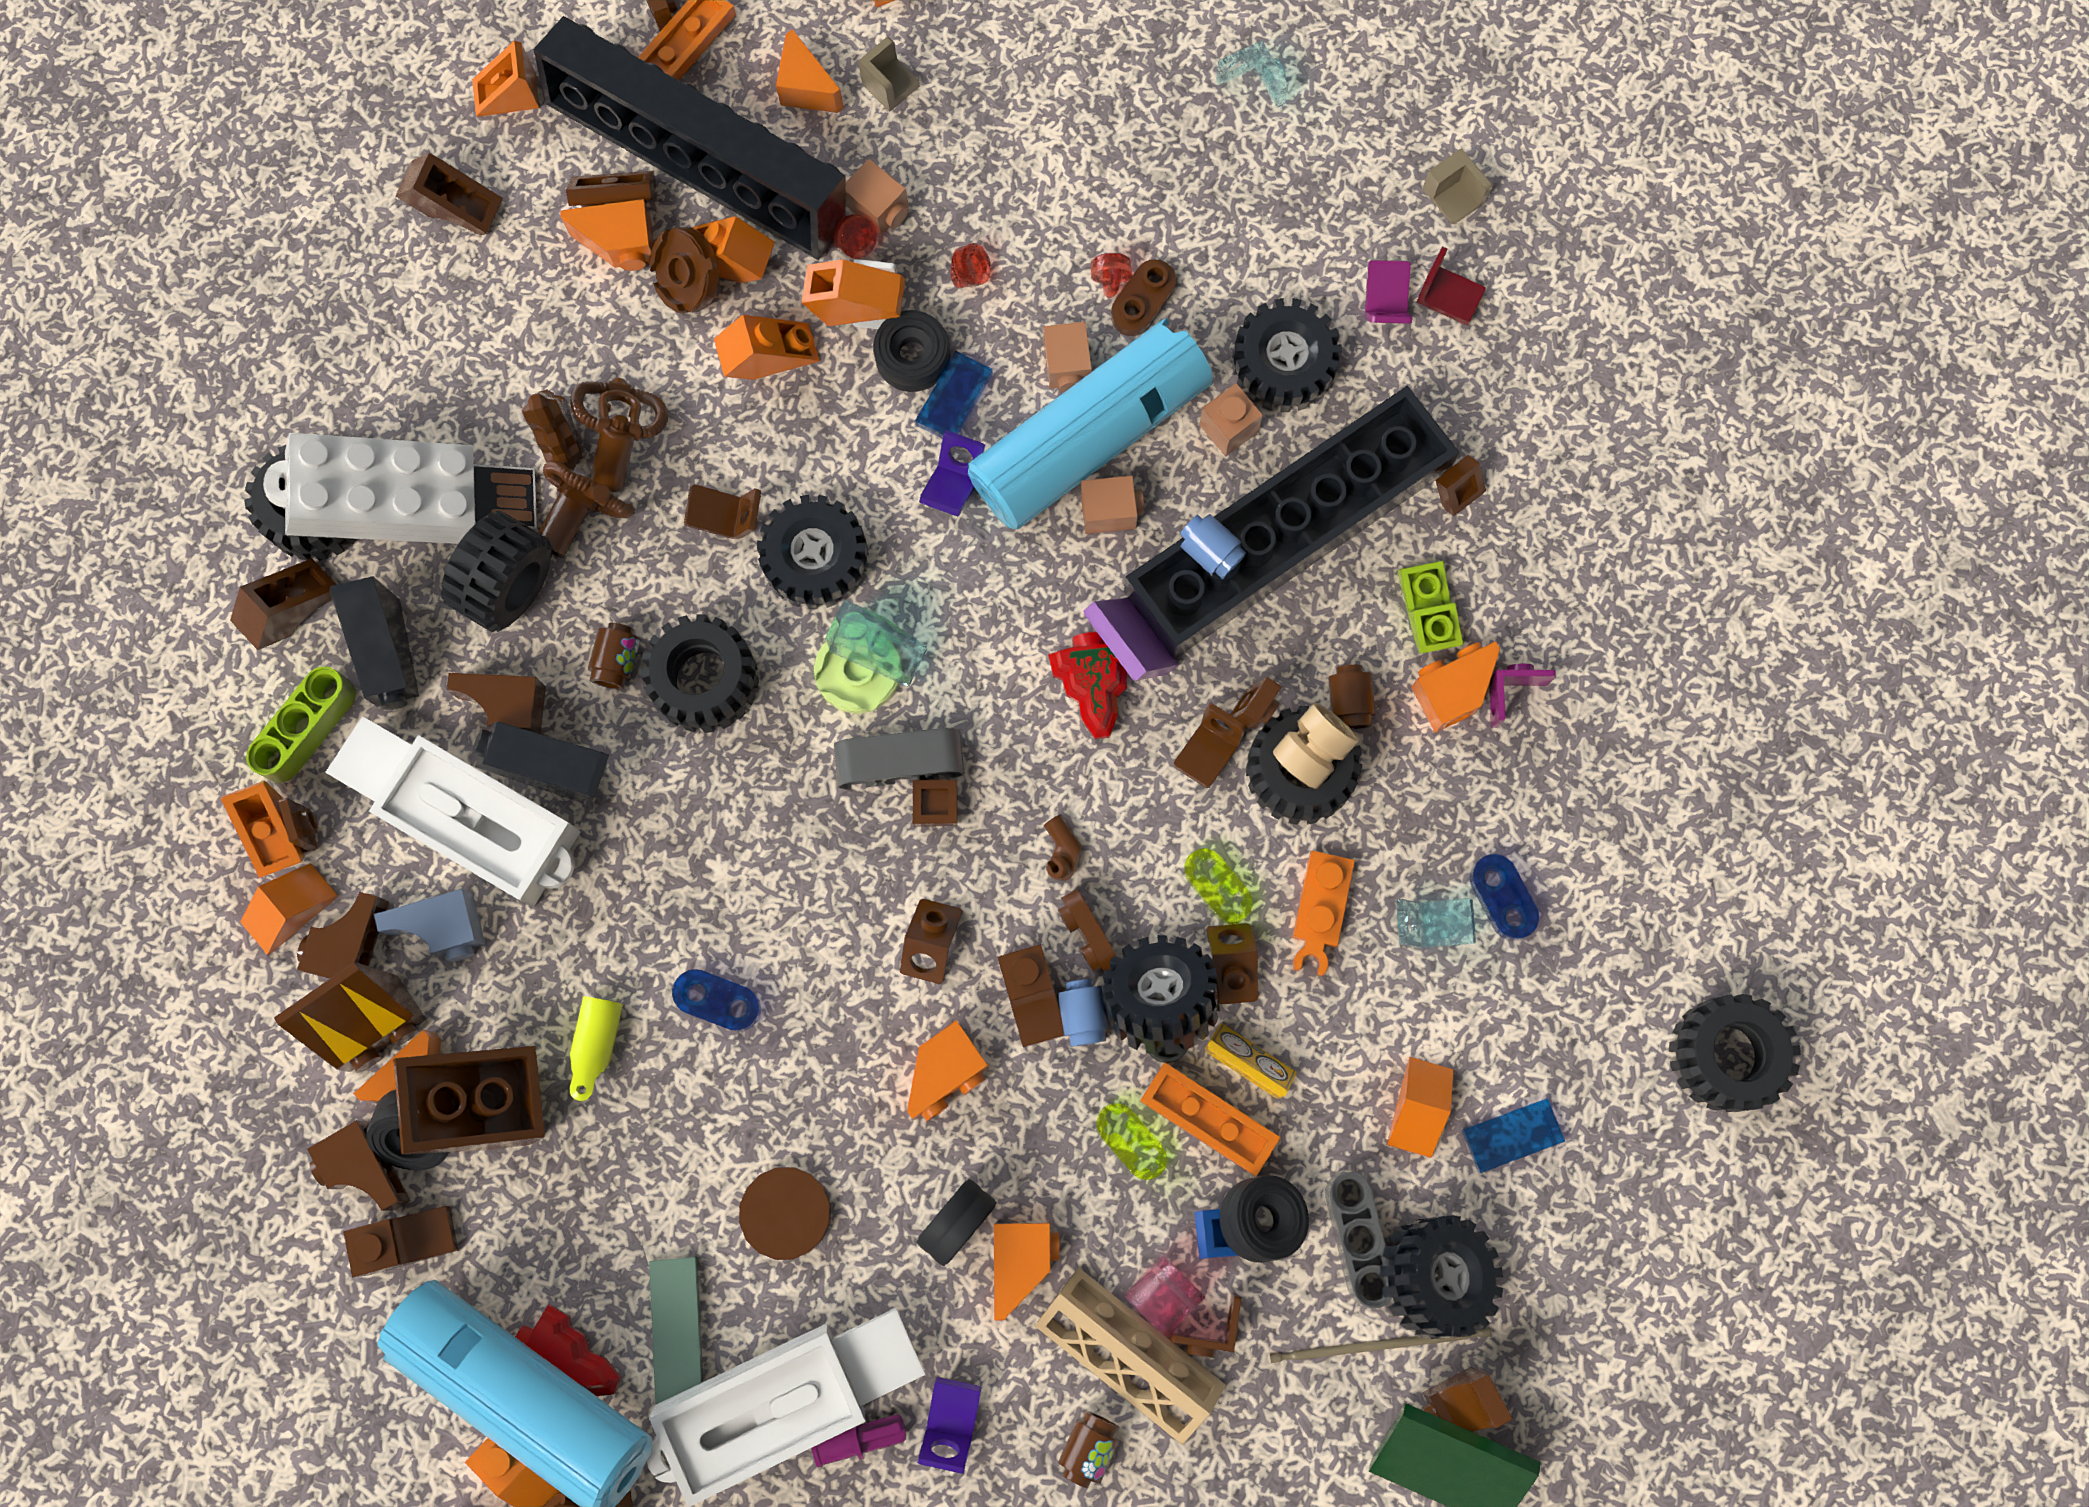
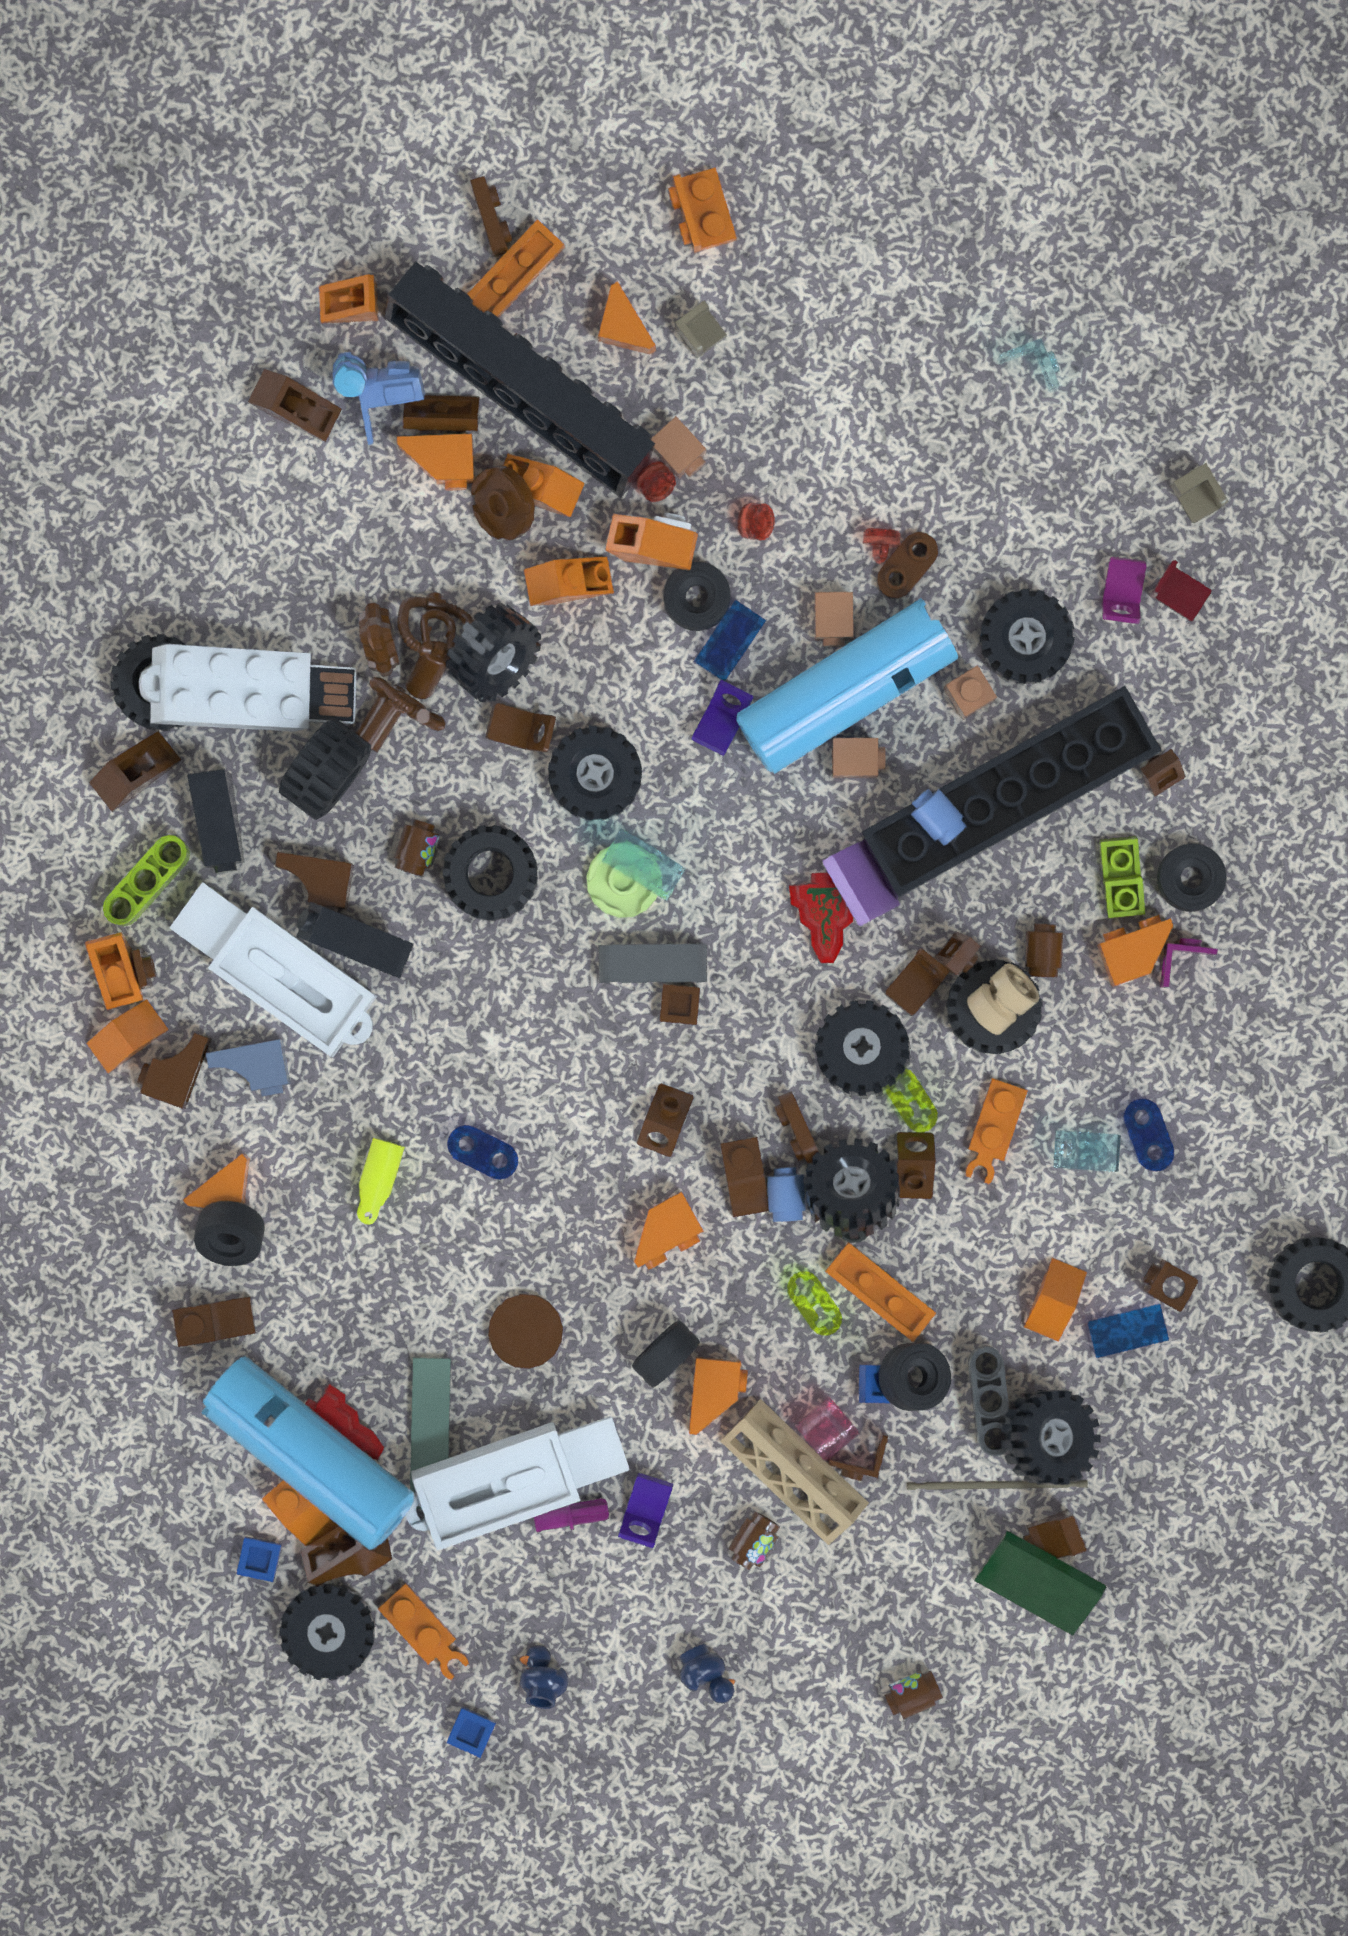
camera: 10 degrees right, 10 degrees up
(348, 1161) = (176, 1253): reddish brown arch -> none
(353, 1017) = (190, 1141): reddish brown slope -> none
(469, 1100) = (283, 1217): reddish brown slope -> none
(533, 162) = (376, 386): none -> medium blue piece
(682, 423) = (493, 652): none -> black wheel
(1066, 851) = (786, 1056): reddish brown arm -> none
(1161, 851) = (860, 1068): none -> black wheel
(1250, 1061) = (920, 1248): yellow slope -> none
(1515, 574) = (1212, 871): none -> black tyre
(1538, 1067) = (1158, 1274): none -> reddish brown bracket

